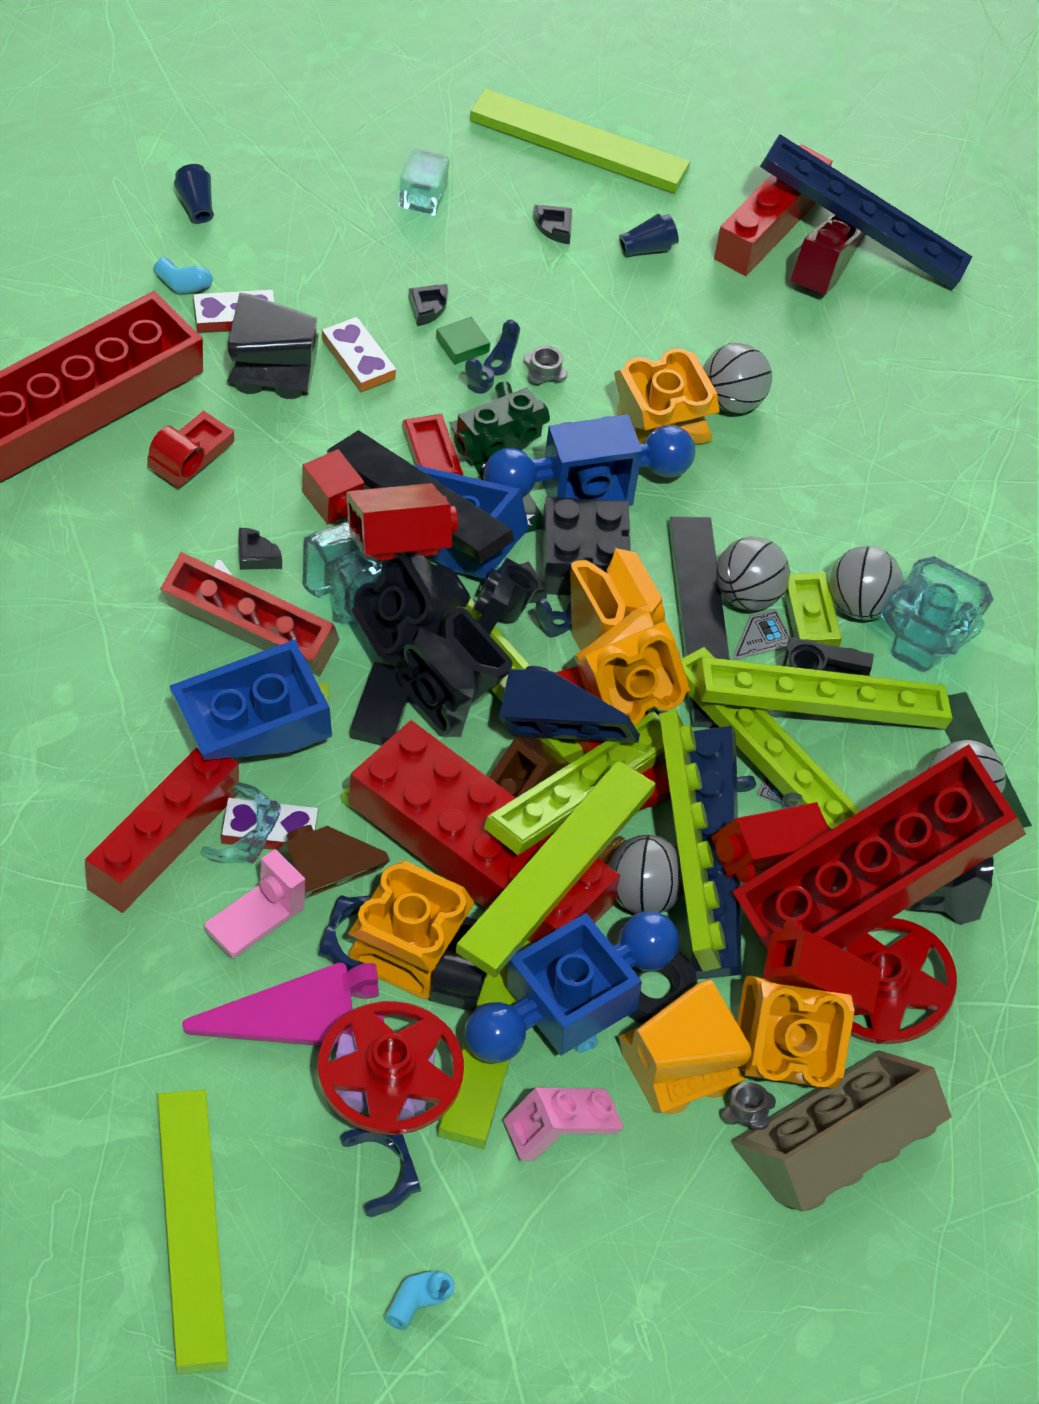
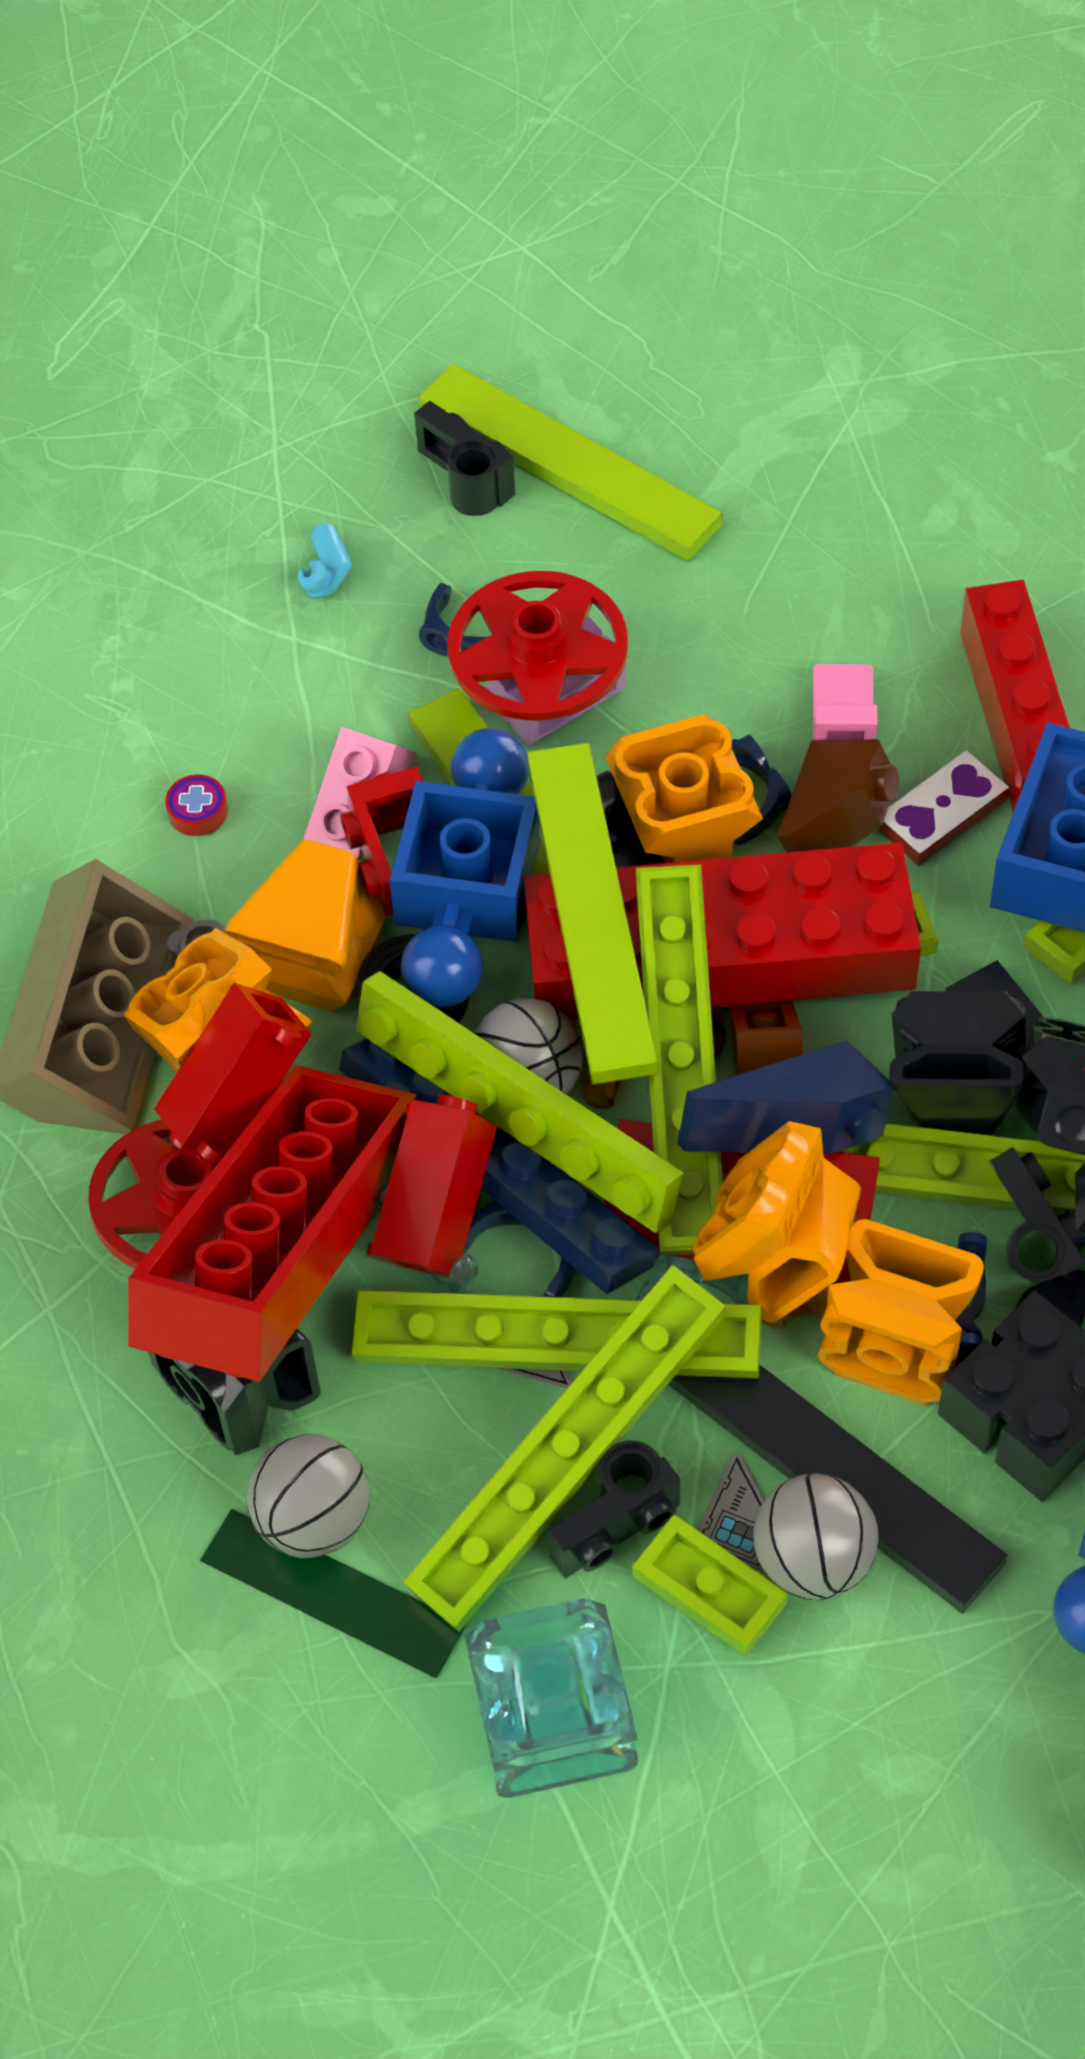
camera: 145 degrees right, 5 degrees up
(243, 850) = (957, 785): clear light blue cap -> none
(258, 1276) = (476, 467): none -> black plate
(292, 1011) = (699, 673): dark pink flag -> none
(587, 1065) = (377, 809): none -> red bracket
(662, 1206) = (196, 805): none -> tile
(864, 581) = (678, 1664): light grey piece -> none

